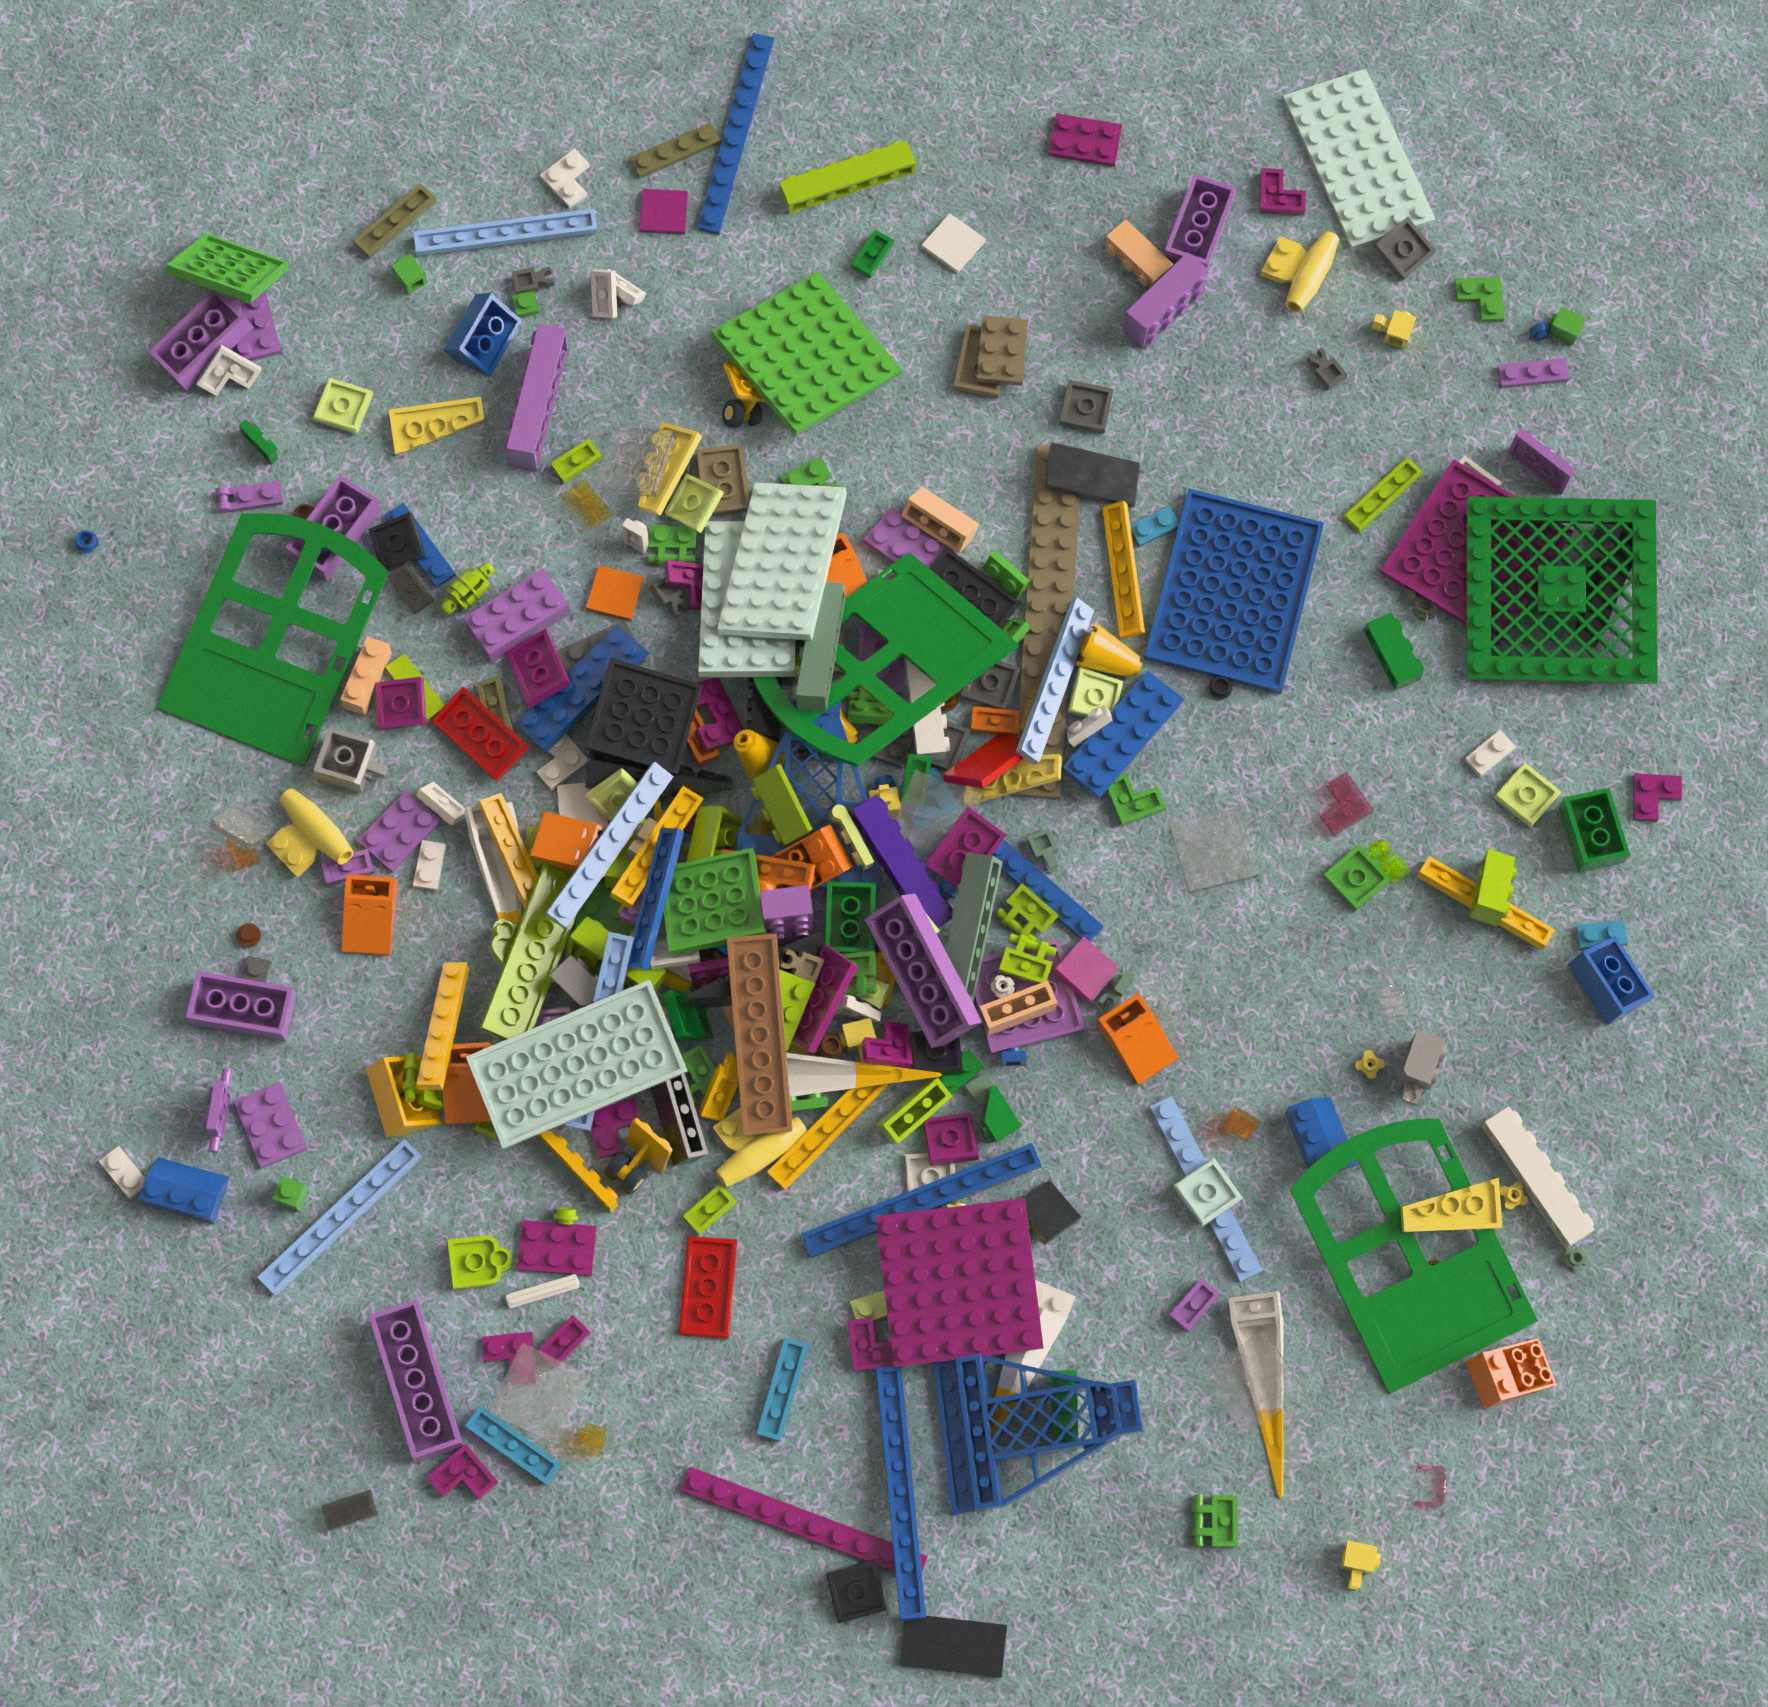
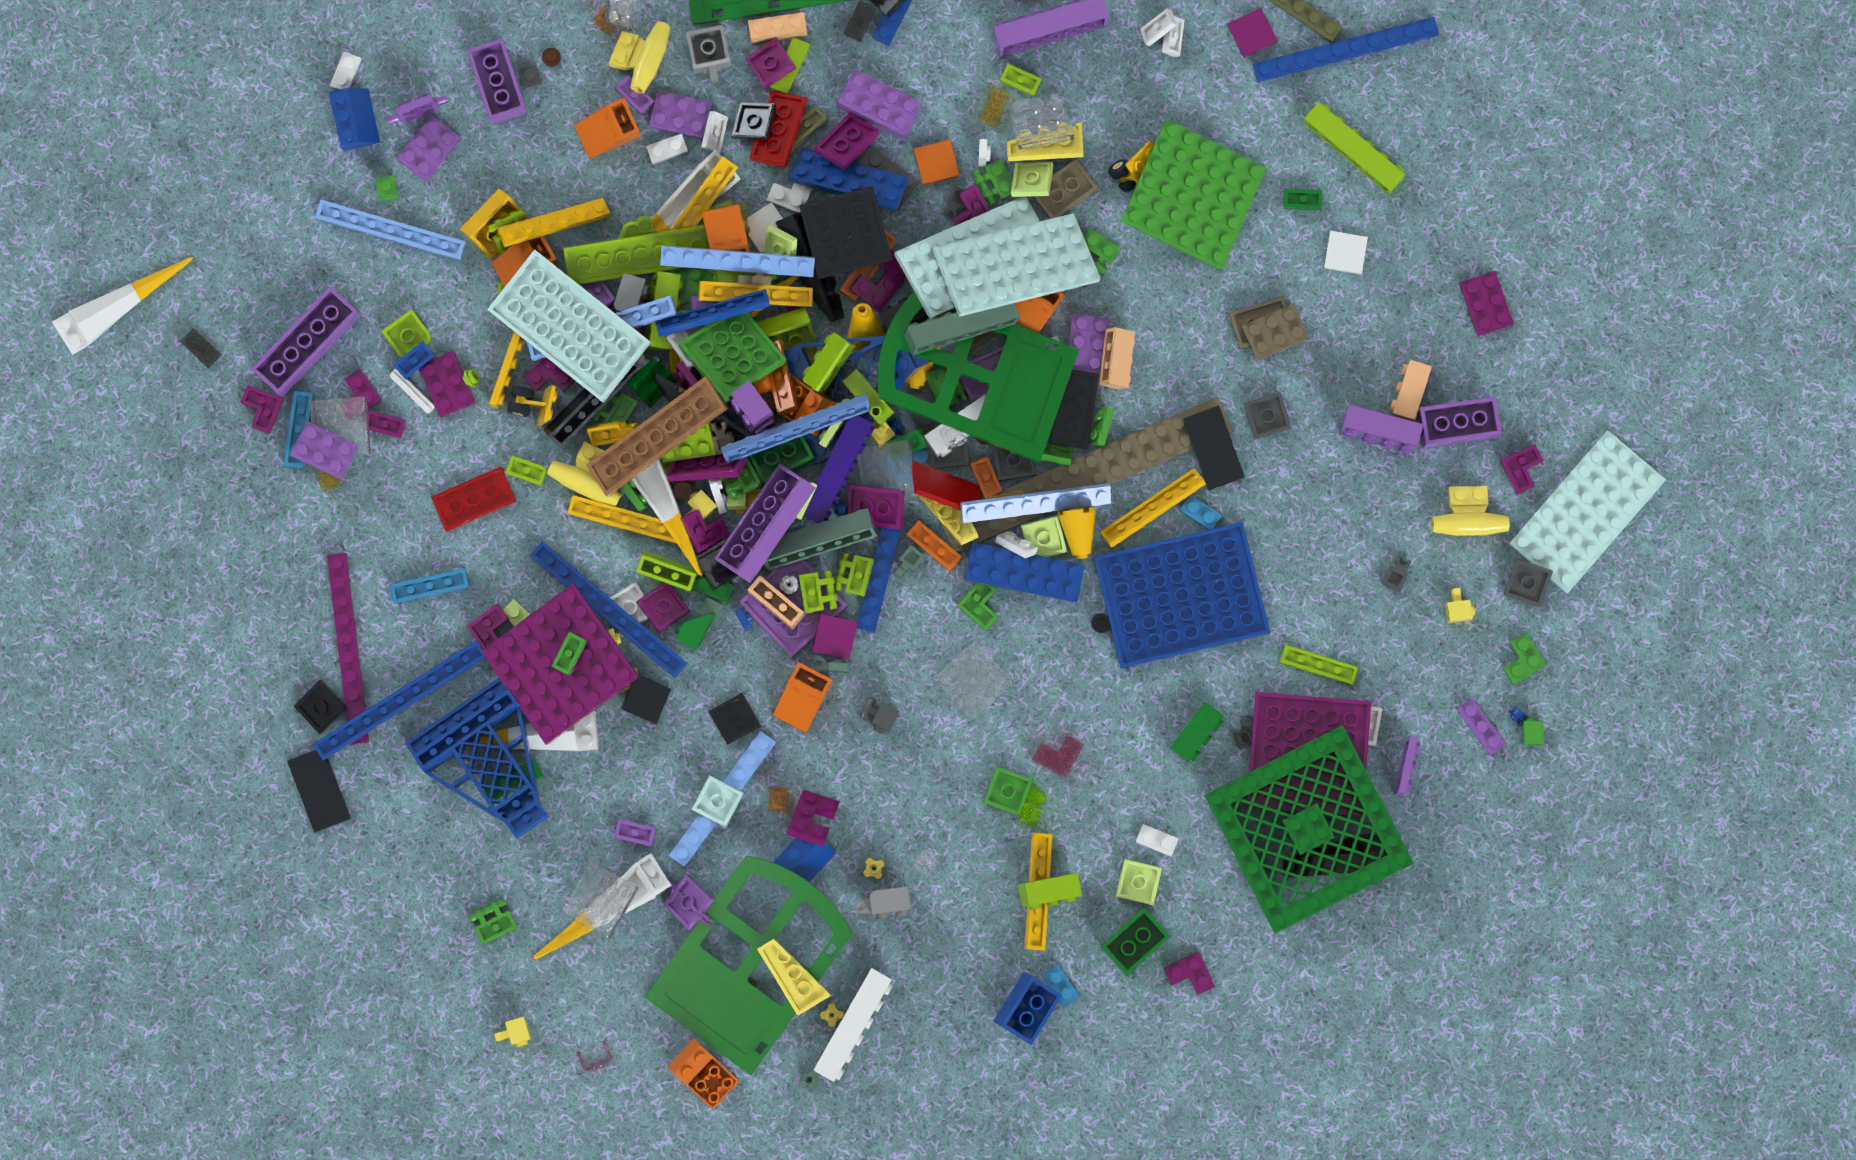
camera: 65 degrees right, 10 degrees up
(239, 1624) = (90, 320): none -> white plate
(455, 754) = (753, 121): none -> tile
(467, 588) = (881, 59): lime piece -> none
(509, 1267) = (414, 360): none -> blue plate
(558, 1424) = (324, 450): none -> medium lavender plate
(838, 880) = (796, 428): none -> medium blue plate
(842, 787) = (859, 386): none -> lime piece
(937, 722) = (951, 437): none -> clear brick
(957, 1260) = (569, 653): none -> bright green plate
(1041, 814) = (934, 546): none -> orange plate
(1120, 1128) = (734, 719): none -> black tile
(1205, 964) = (883, 717): none -> dark grey brick
(1266, 1097) = (801, 823): none -> magenta plate
(1309, 1284) = (689, 902): none -> medium lavender plate

